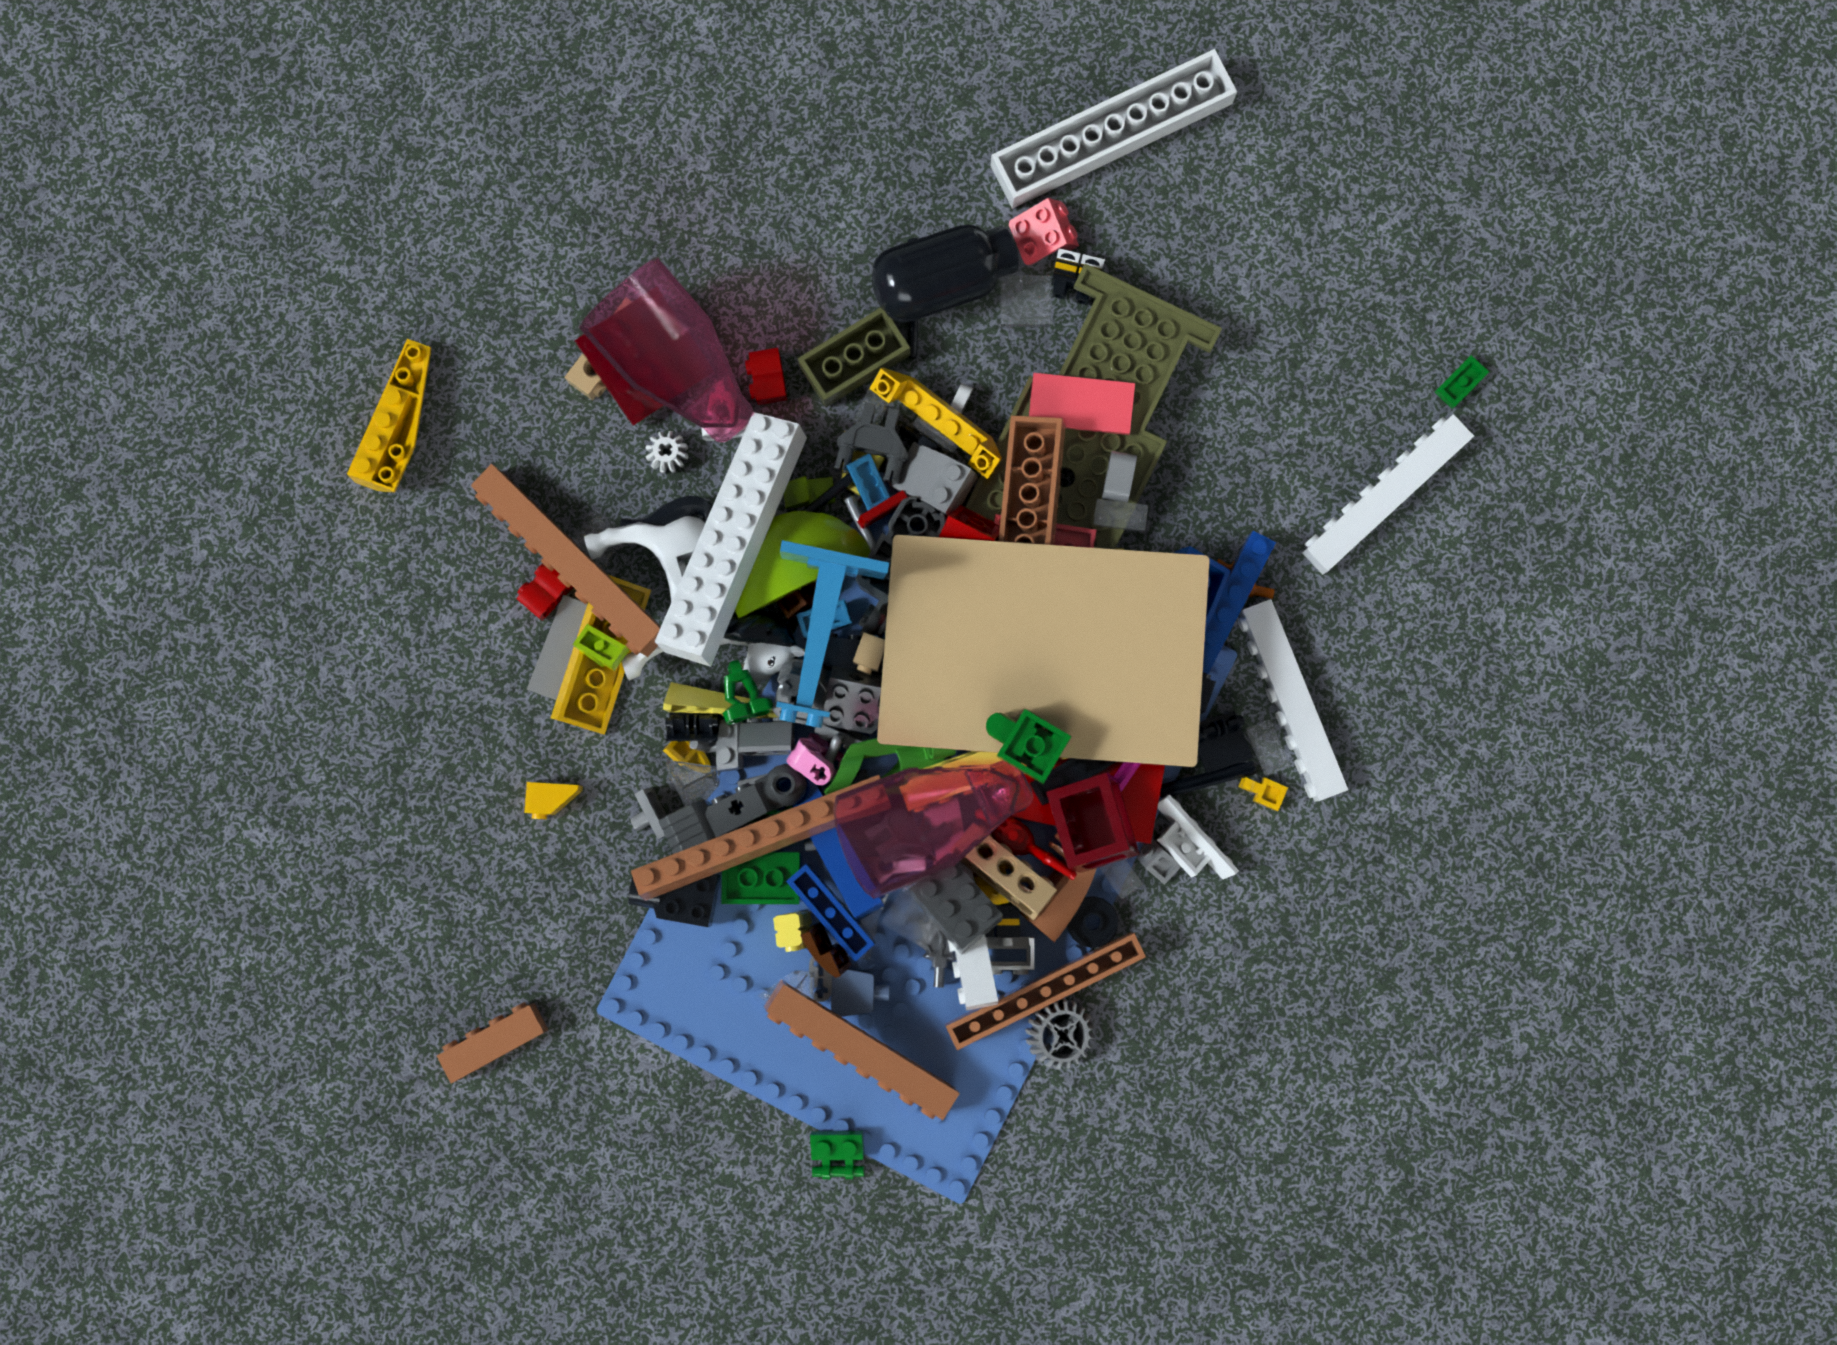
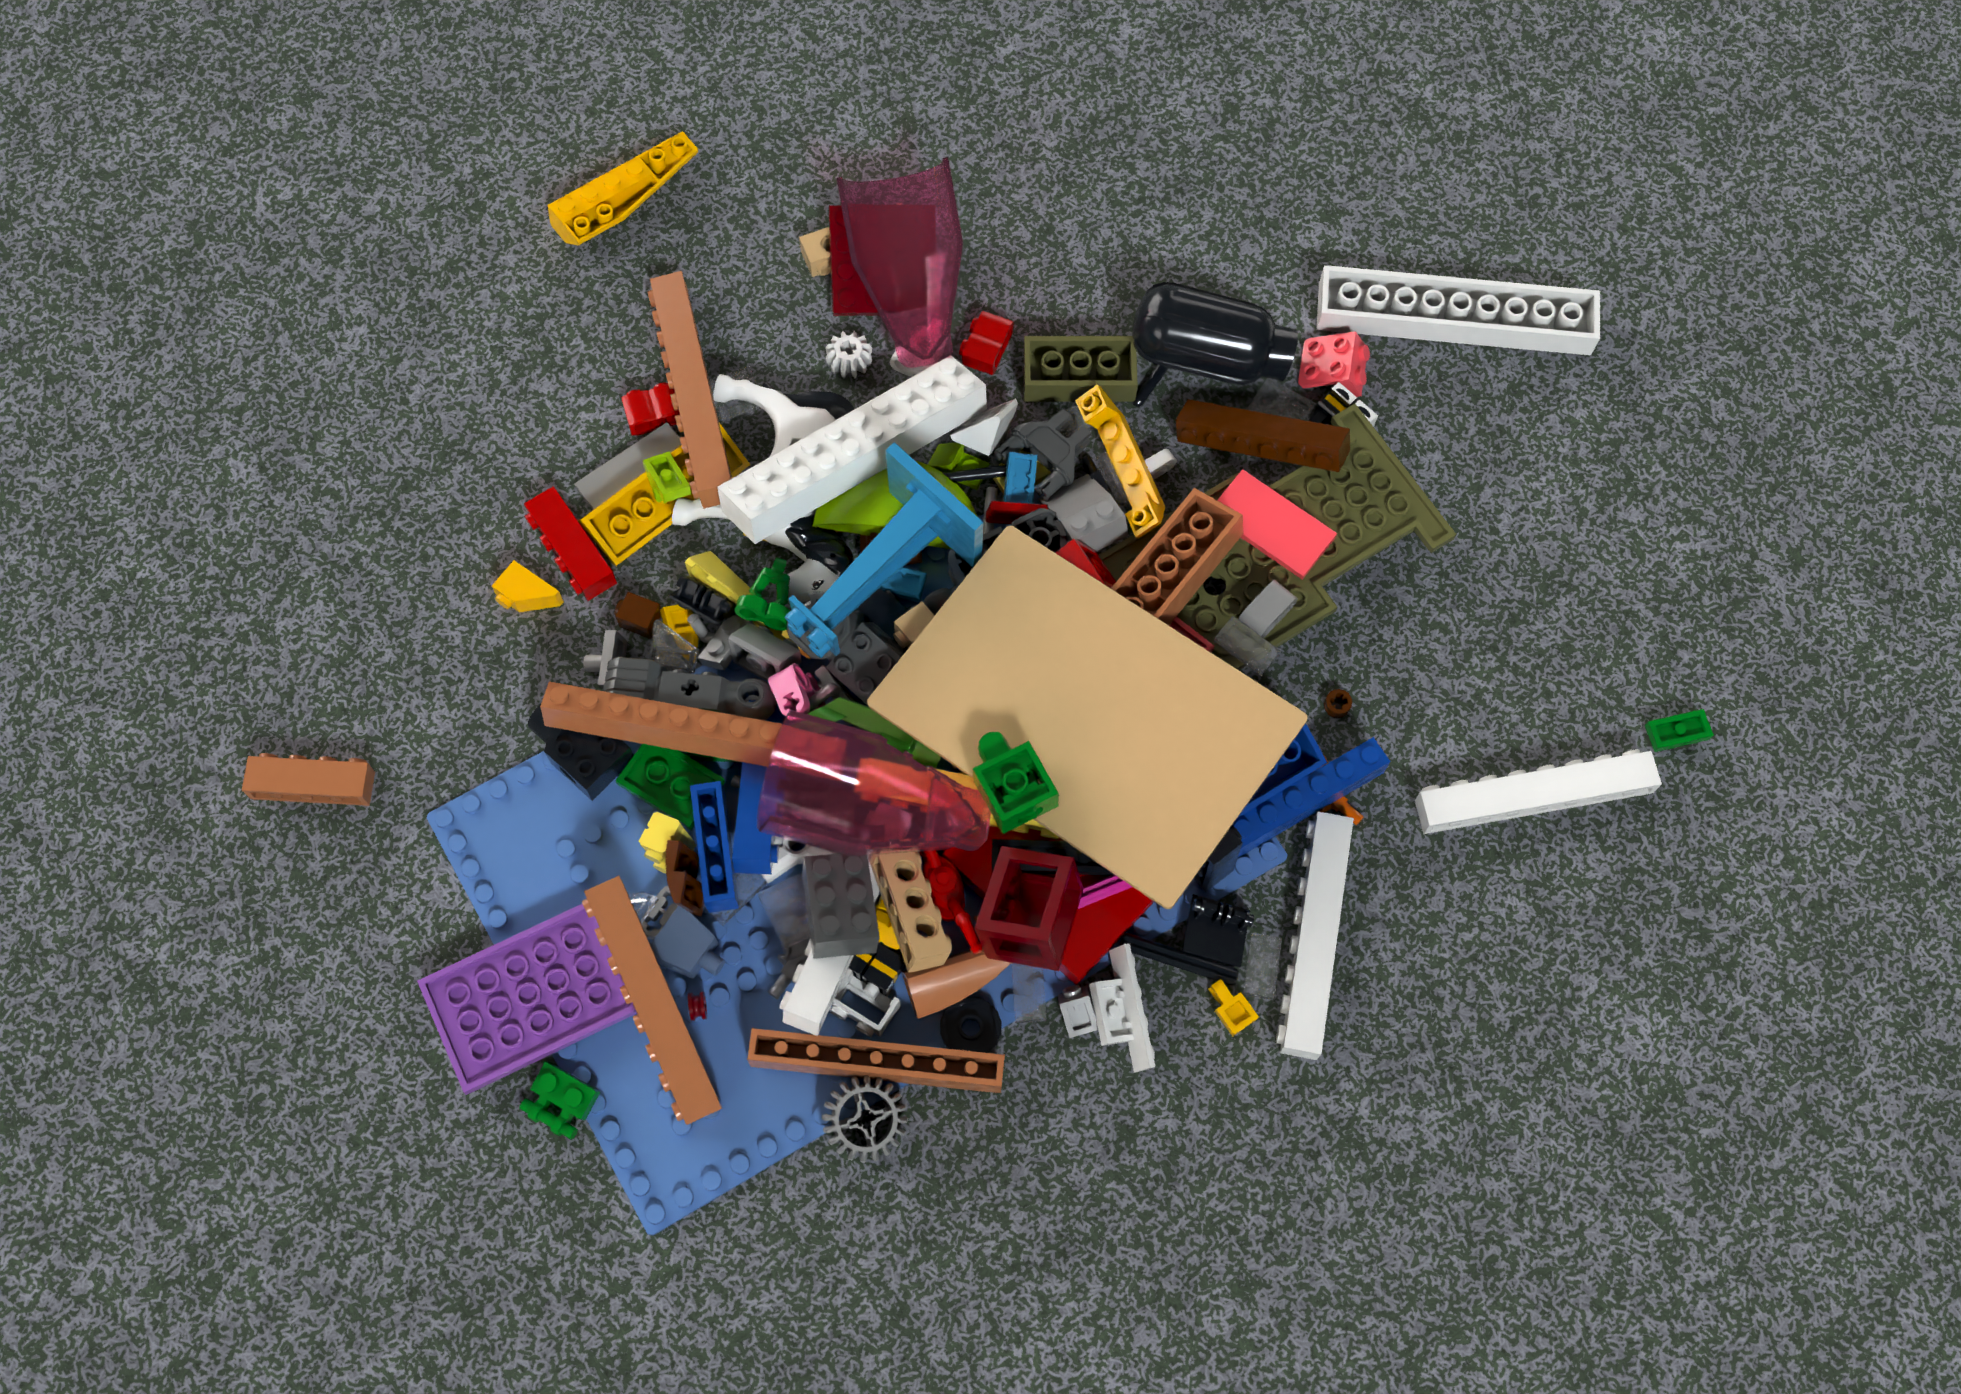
camera: 30 degrees right, 15 degrees down
(558, 740) = (570, 544): none -> red brick
(648, 764) = (637, 614): none -> reddish brown brick
(764, 1102) = (525, 998): none -> medium lavender plate
(816, 453) = (987, 429): none -> white slope
(891, 1029) = (697, 1006): none -> dark red bush
(1030, 332) = (1263, 435): none -> reddish brown brick
(1203, 520) = (1331, 710): none -> reddish brown bush

